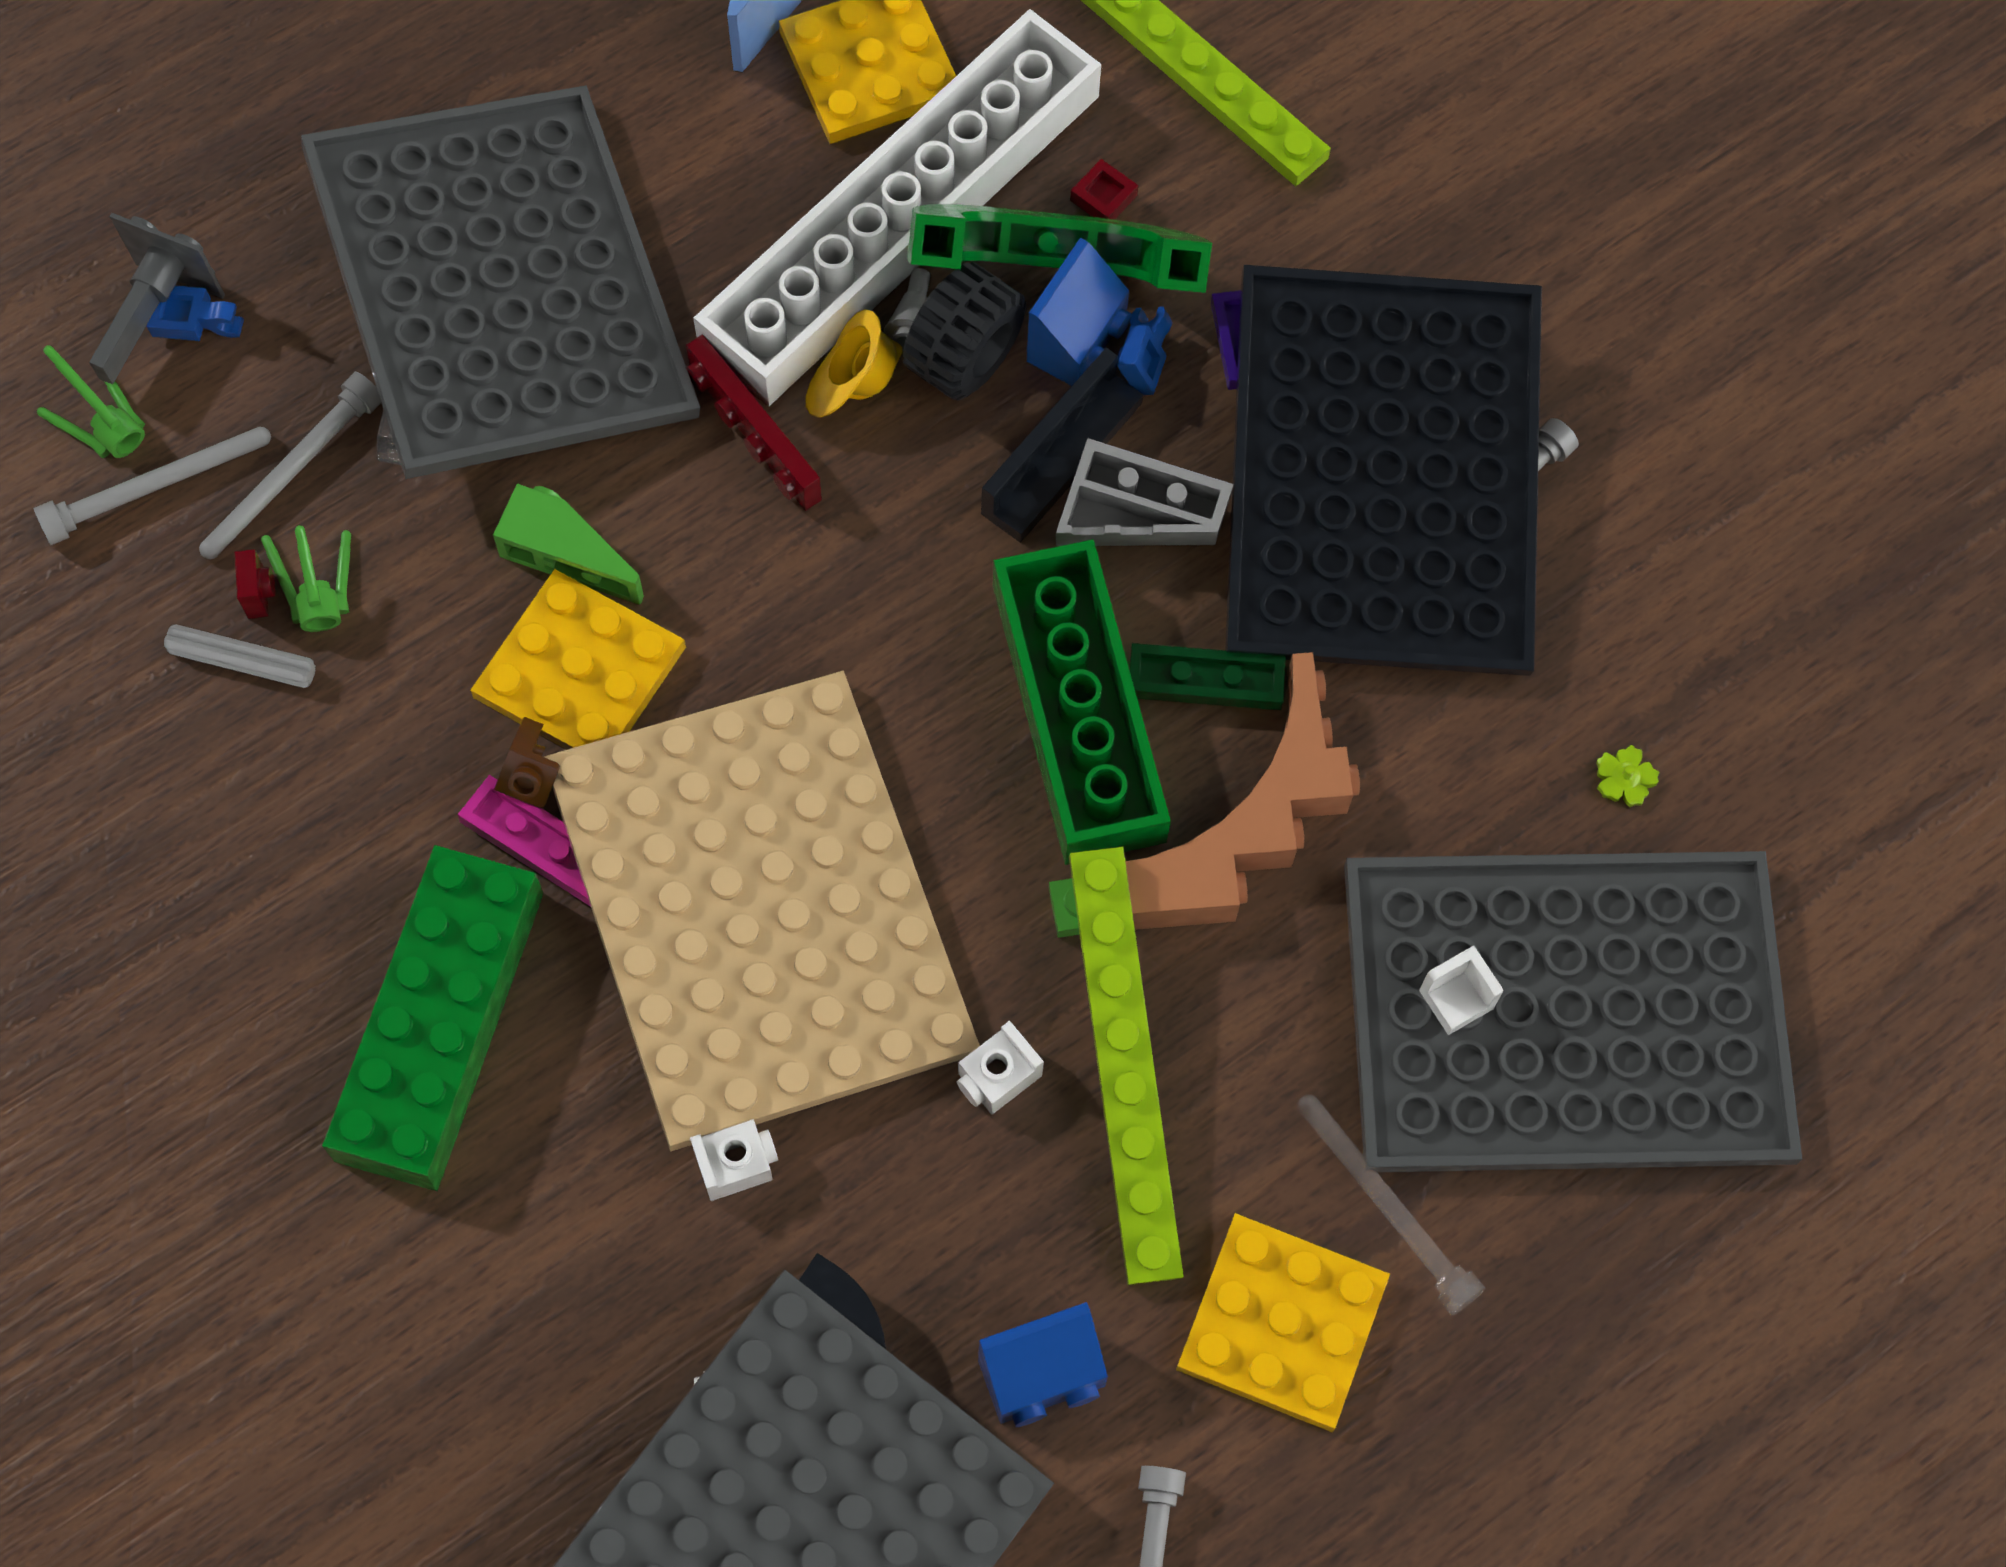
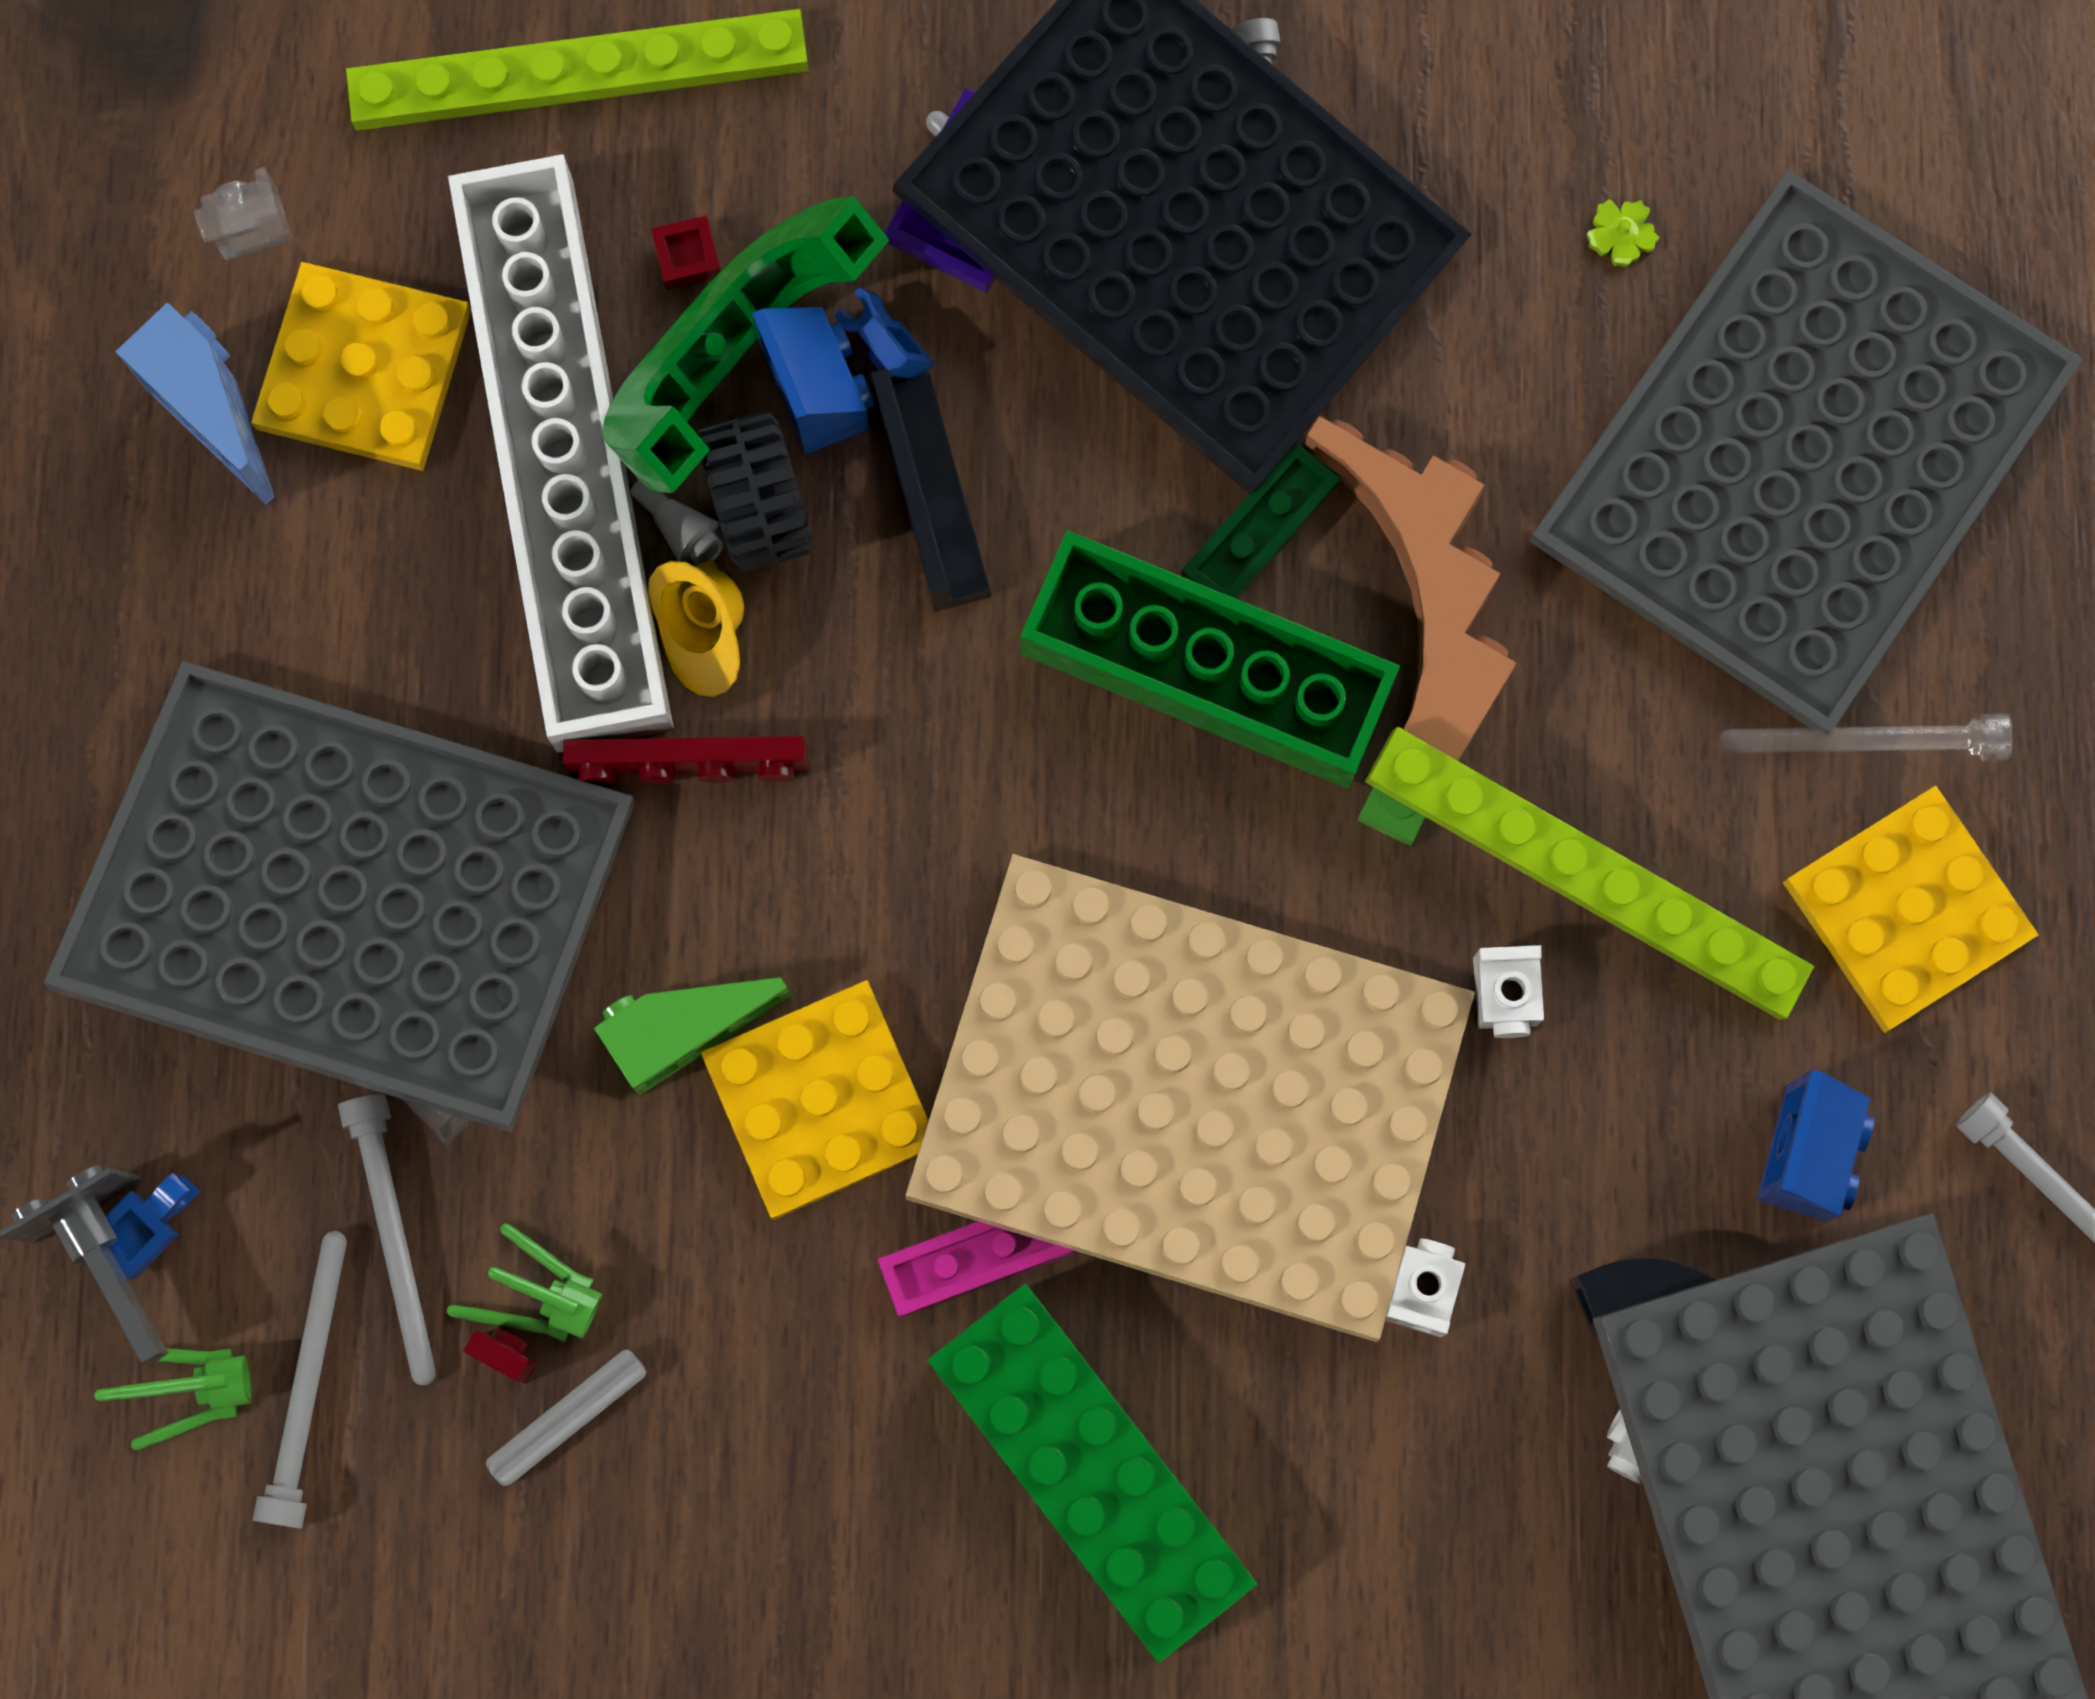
camera: 50 degrees left, 10 degrees up
(525, 771) = (898, 1225): reddish brown bracket -> none
(1140, 501) = (1046, 459): light grey wedge -> none
(1461, 990) = (1737, 530): white panel -> none

